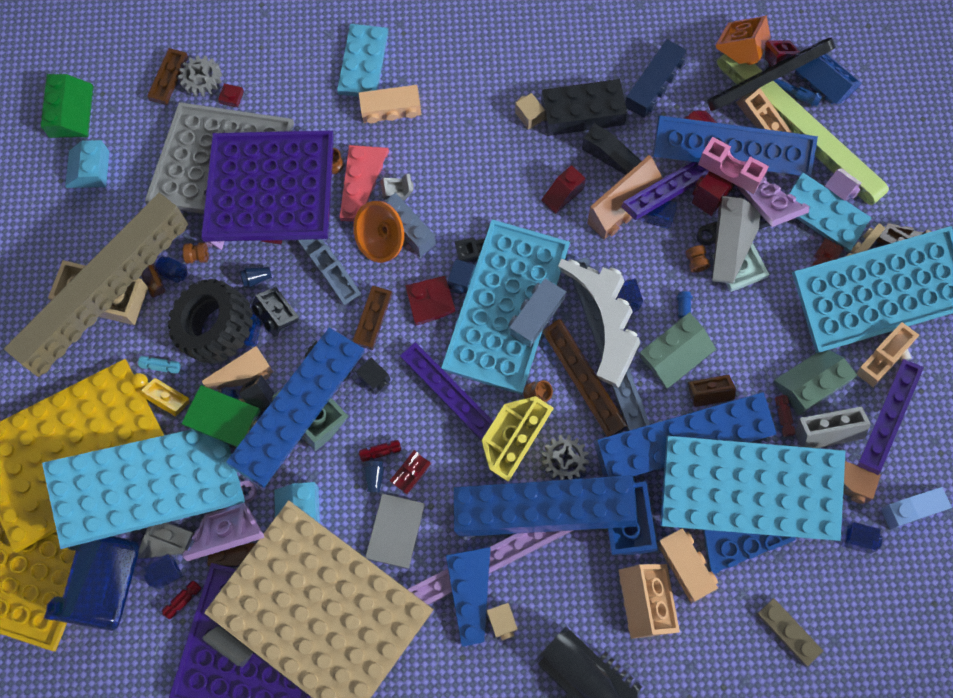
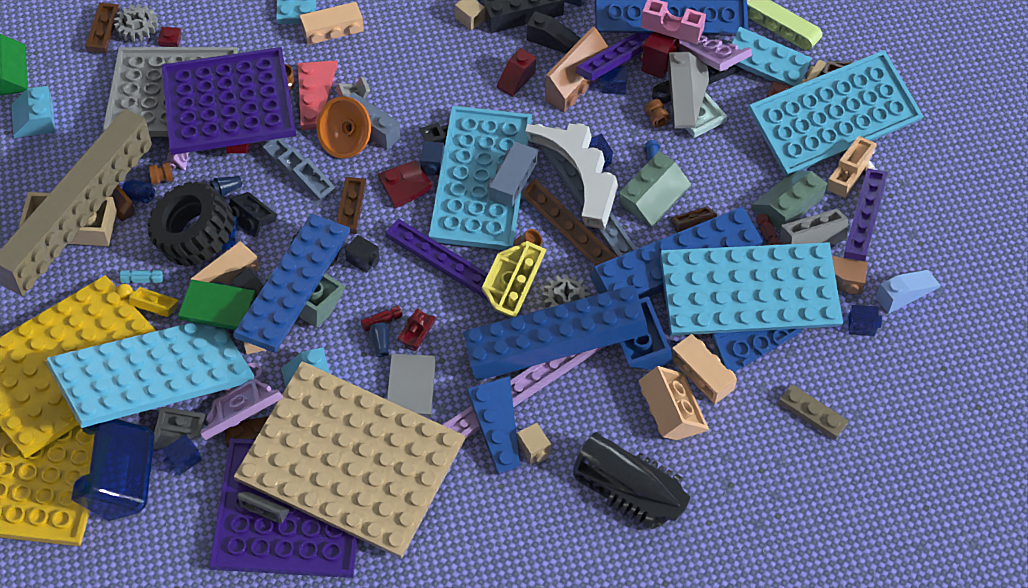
camera: 15 degrees left, 15 degrees down
(181, 600) = (204, 478): dark red axle -> none
(843, 185) = (779, 32): lavender brick -> none

